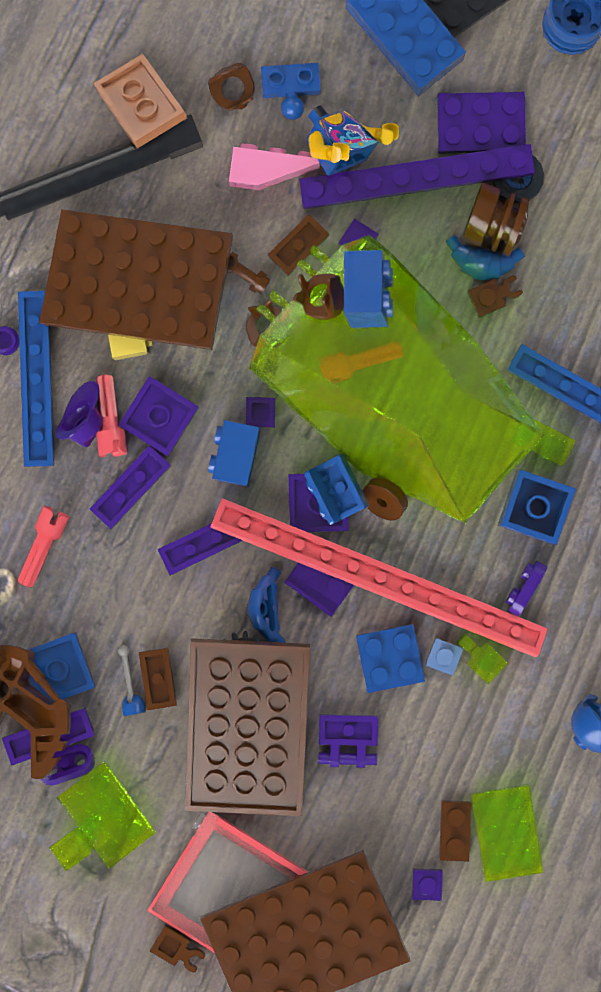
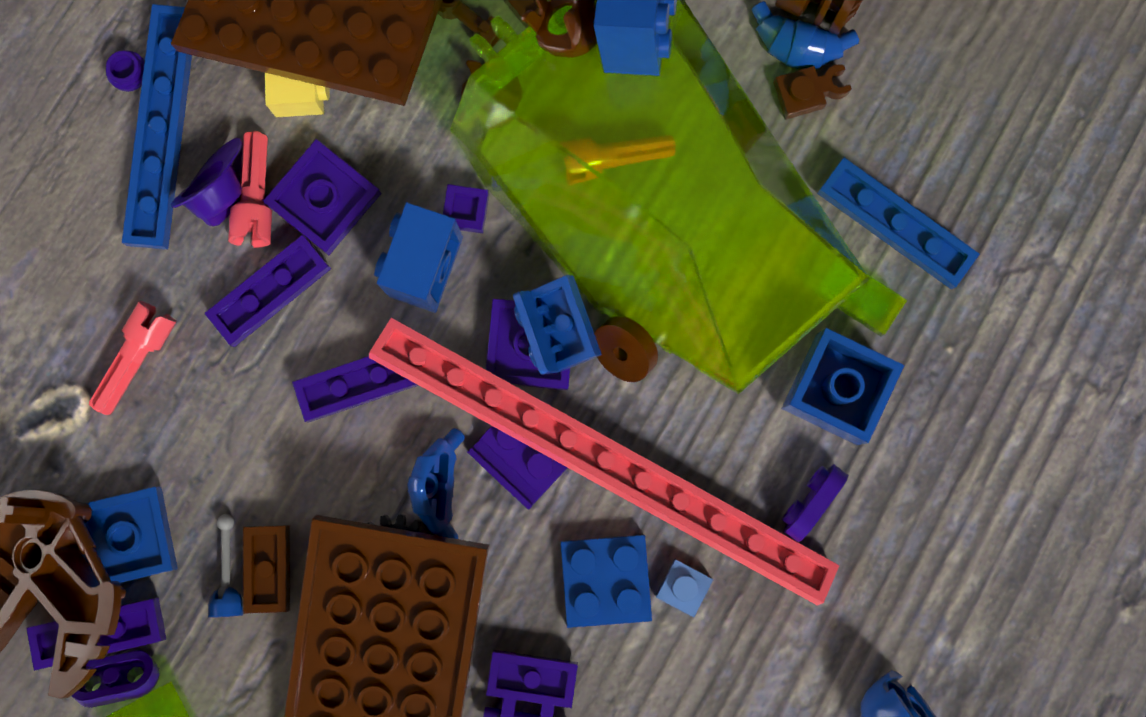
camera: 10 degrees right, 5 degrees down
(484, 660) = (742, 599): clear neon green plate -> none

